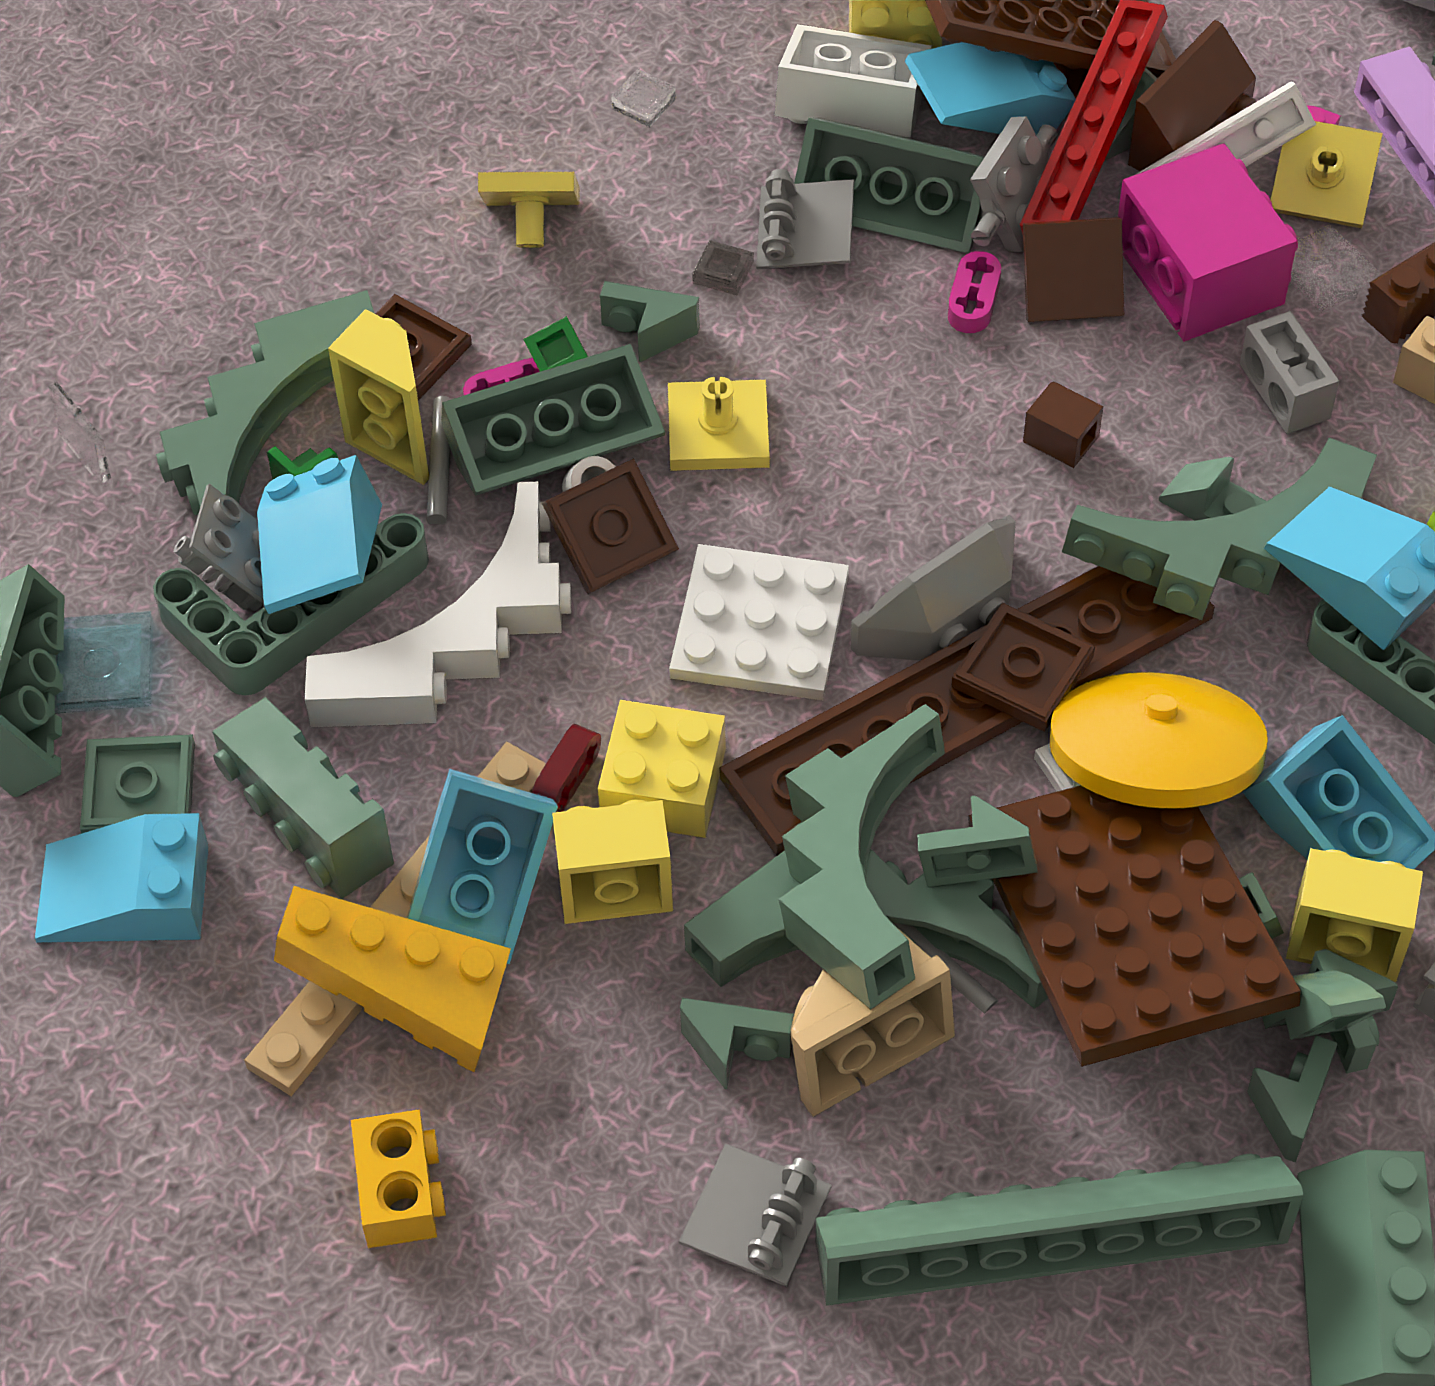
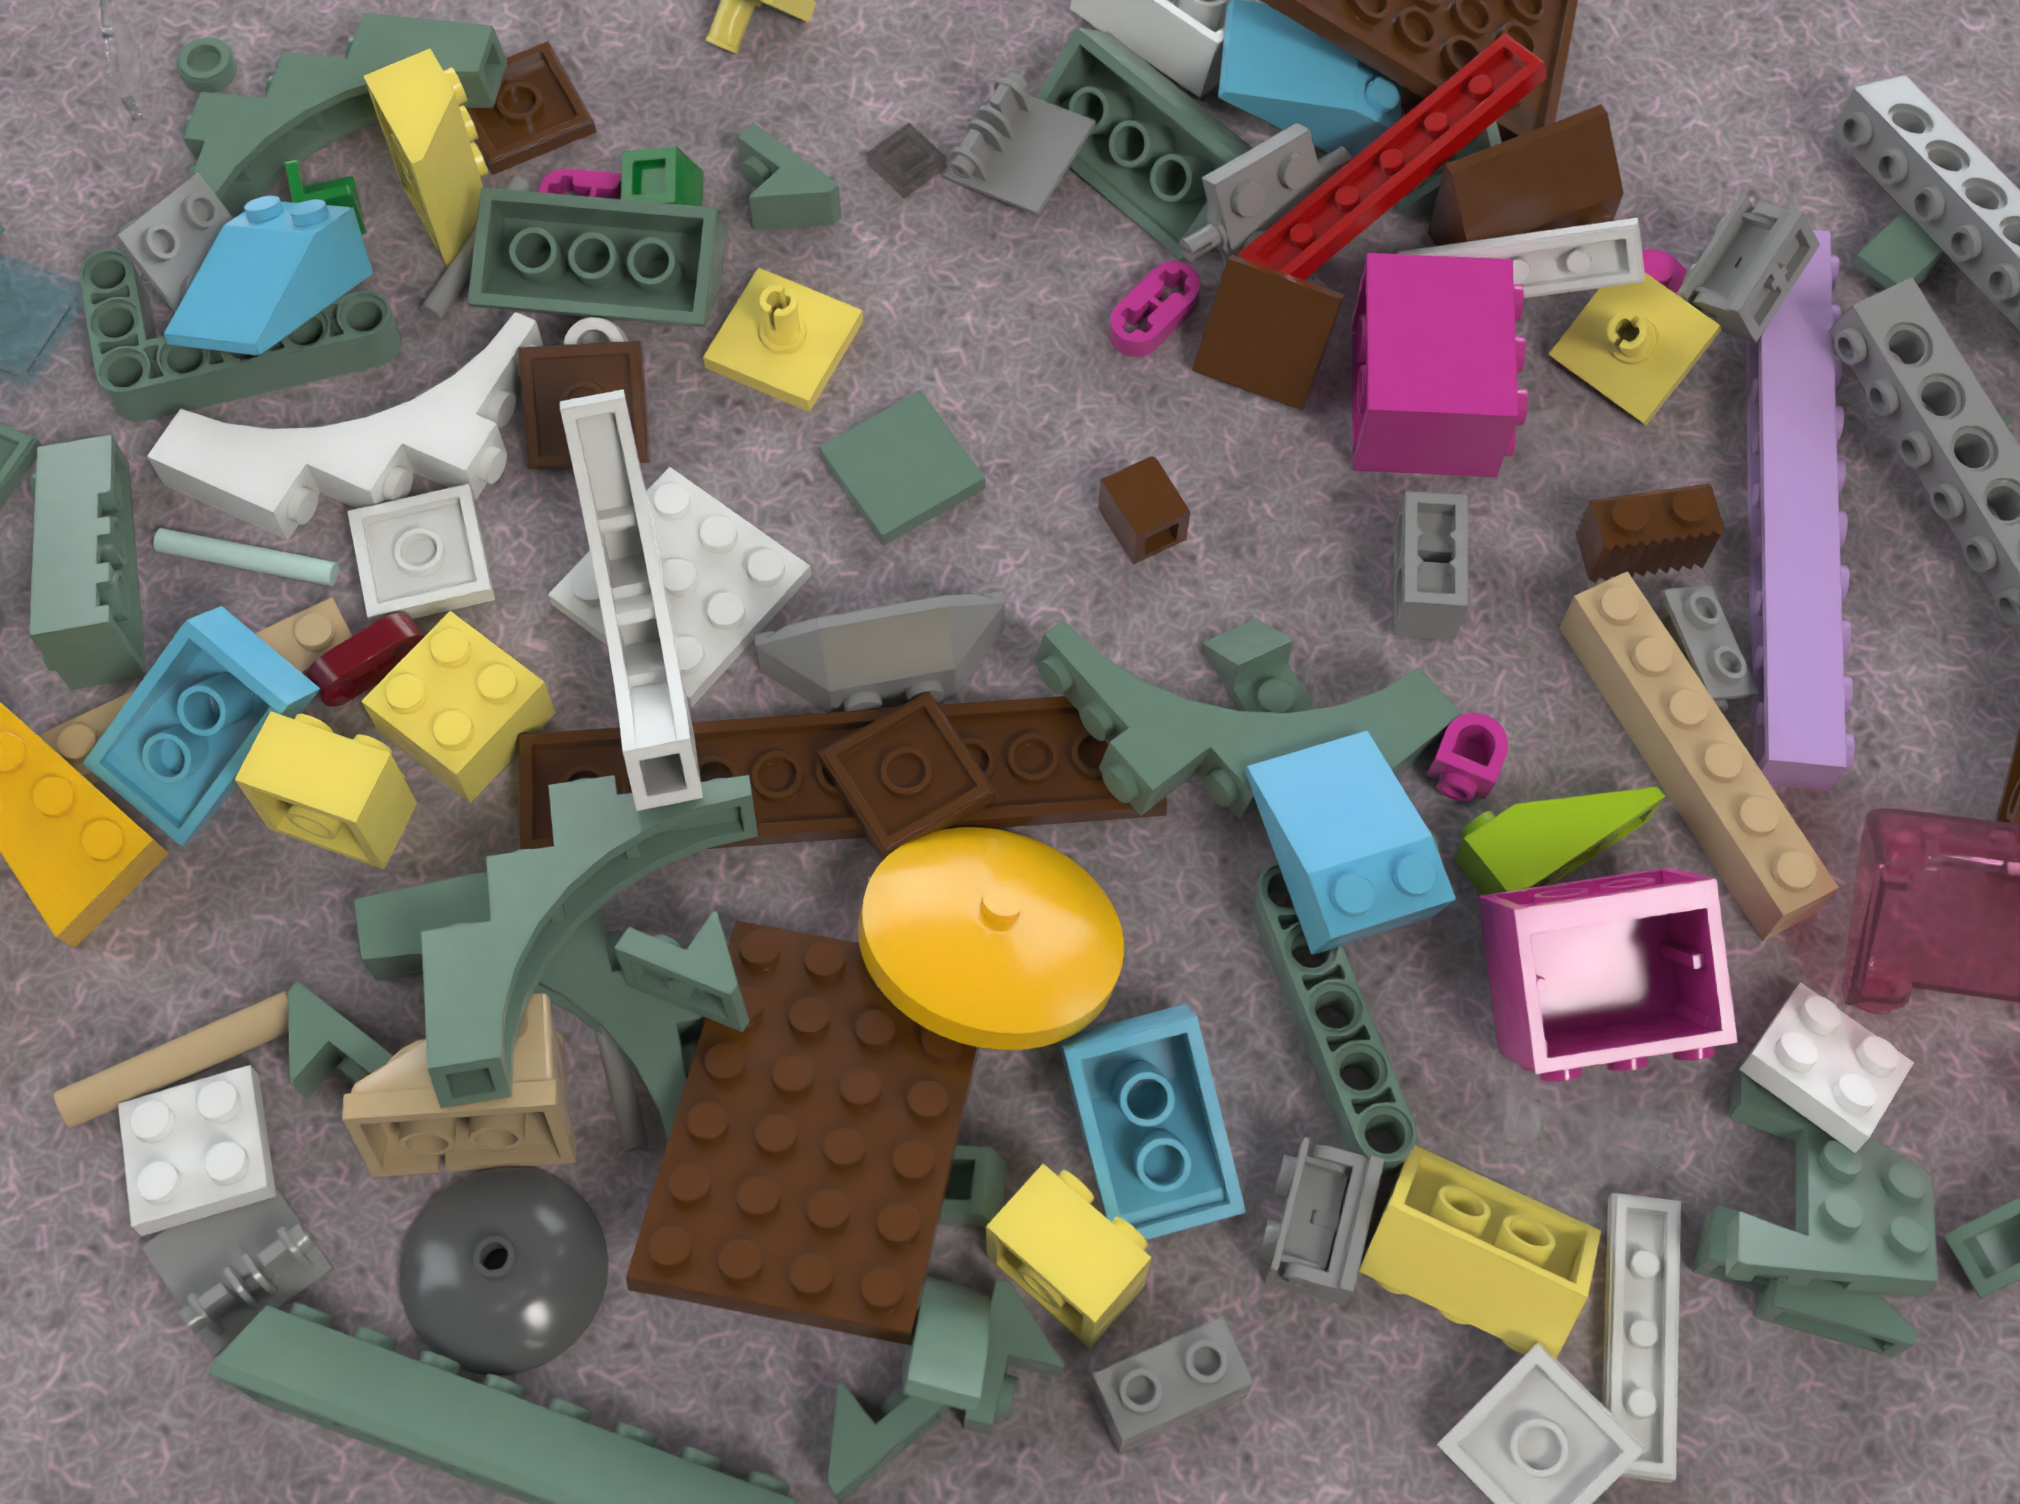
camera: 25 degrees right, 10 degrees up
(131, 420) = (206, 65): none -> sand green tile
(415, 746) = (246, 556): none -> light aqua bar
(554, 683) = (421, 554): none -> white plate
(614, 1104) = (173, 1060): none -> tan piece
(675, 1155) = (196, 1150): none -> white plate
(729, 600) = (633, 602): none -> white arch
(866, 473) = (902, 467): none -> sand green tile
(940, 1154) = (532, 1304): none -> dark grey dish
(1377, 86) = (1750, 267): none -> light grey hinge
(1398, 482) = (1469, 757): none -> dark pink plate

